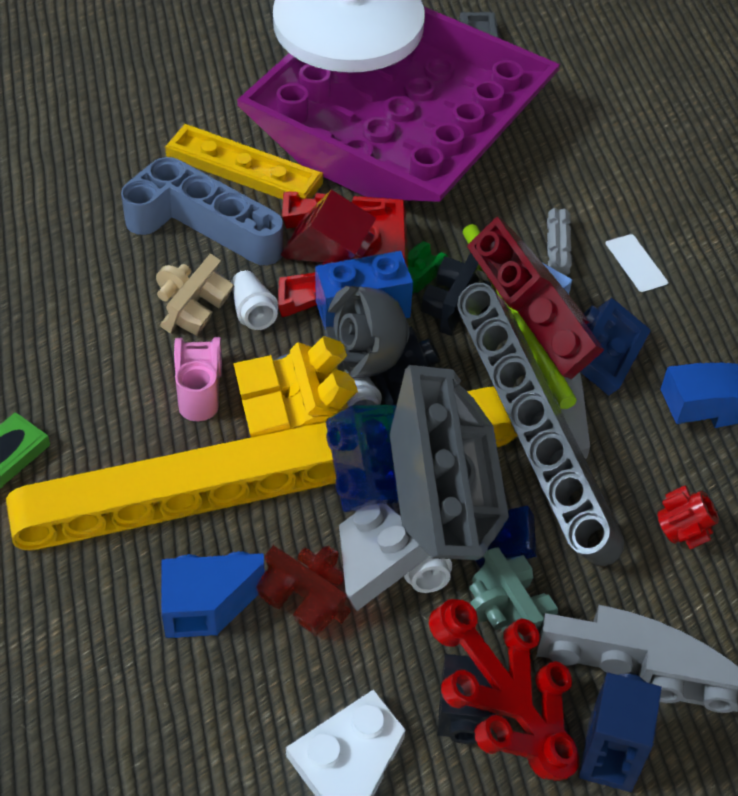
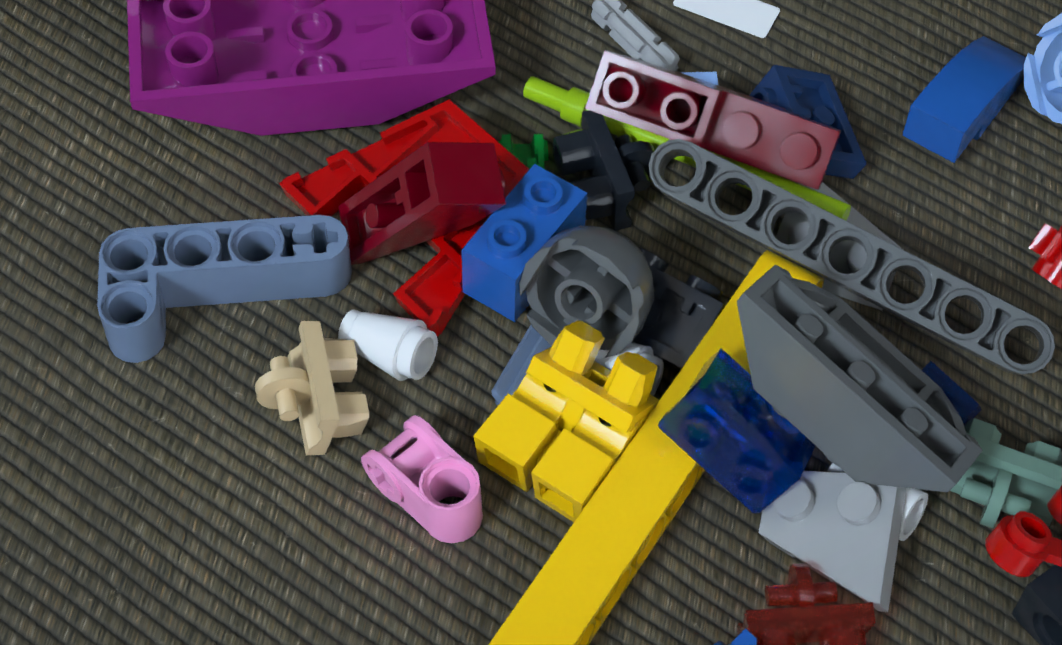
camera: 40 degrees left, 5 degrees up
(242, 163) = (182, 181): yellow tile -> none

